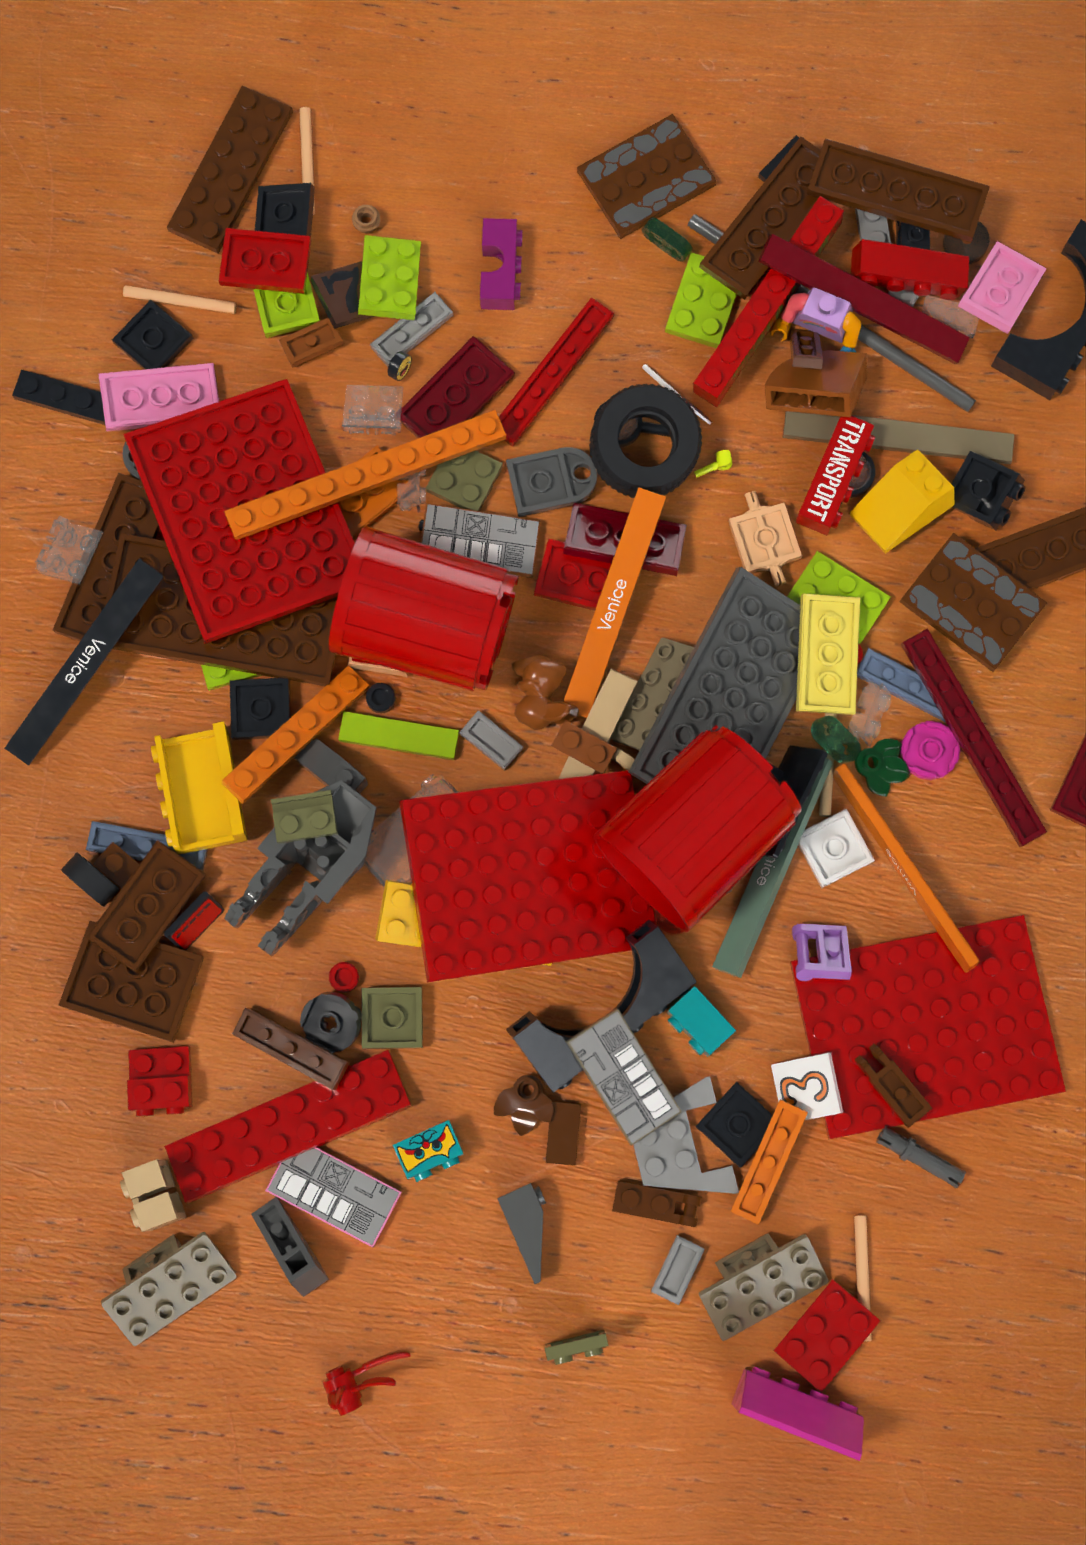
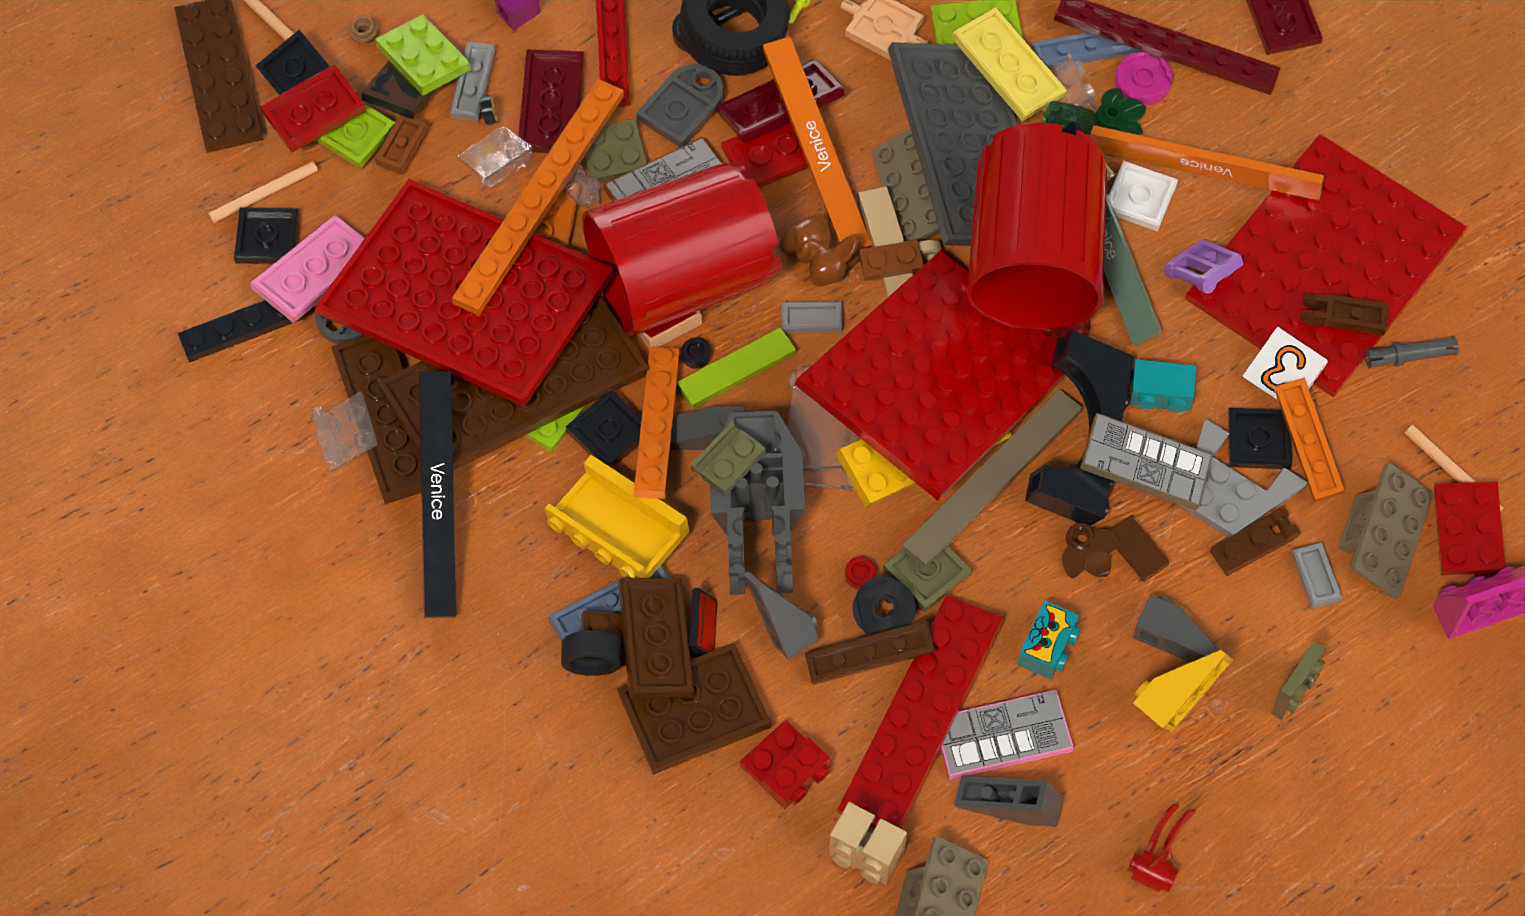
camera: 40 degrees left, 15 degrees down
(246, 969) = (785, 621): none -> dark grey slope
(472, 1276) = (1175, 693): none -> yellow slope
(503, 987) = (991, 479): none -> dark tan tile

